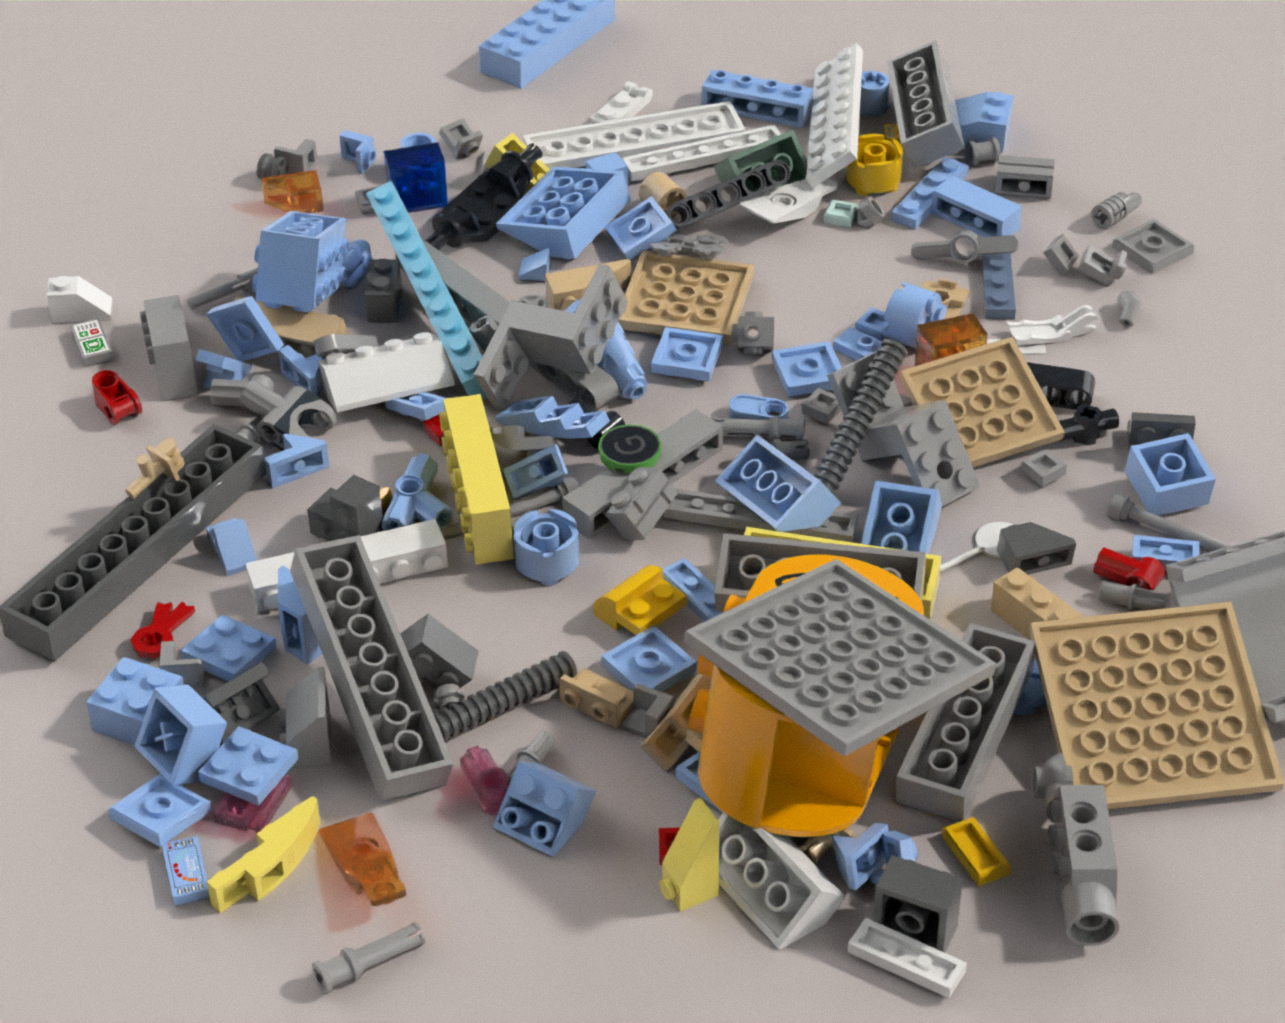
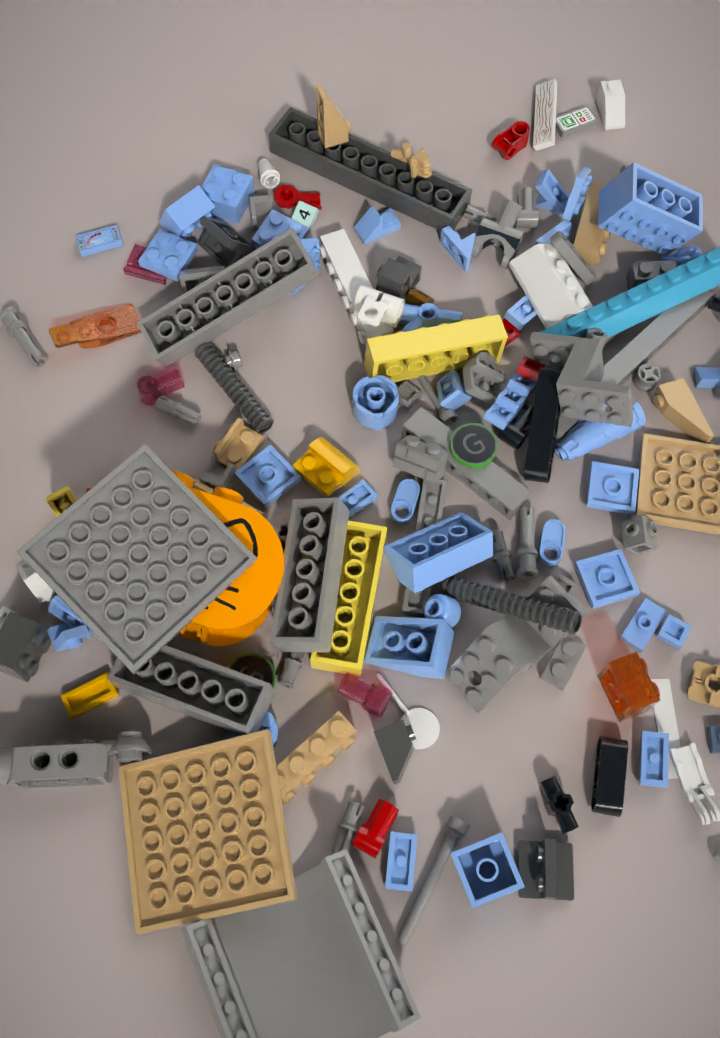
camera: 85 degrees right, 25 degrees up
(70, 534) = (331, 123): none -> tan slope
(71, 363) = (545, 115): none -> white tile
(100, 659) = (268, 174): none -> white cone
(159, 810) = (140, 219): light blue tile -> none
(169, 347) = (568, 156): light grey wedge -> none
(195, 617) = (305, 214): none -> light aqua tile
(277, 855) = (104, 280): light yellow slope -> none
(405, 518) = (377, 307): none -> white piece
(439, 653) = (259, 339): dark grey brick -> none
(516, 397) = (529, 368): none -> red plate
(543, 807) = (134, 419): light blue slope -> none
(604, 387) = (543, 428): none -> black beam
(688, 532) = (405, 497): none -> light blue piece
(854, 486) = (443, 607): none -> light blue head
(910, 308) = (675, 658): light blue brick -> none
(965, 571) = (370, 696): none -> clear pink piece
(990, 400) = (564, 712): tan plate -> none
(1037, 350) = (654, 759): none -> light blue plate
(1043, 467) = (501, 765): light grey plate -> none

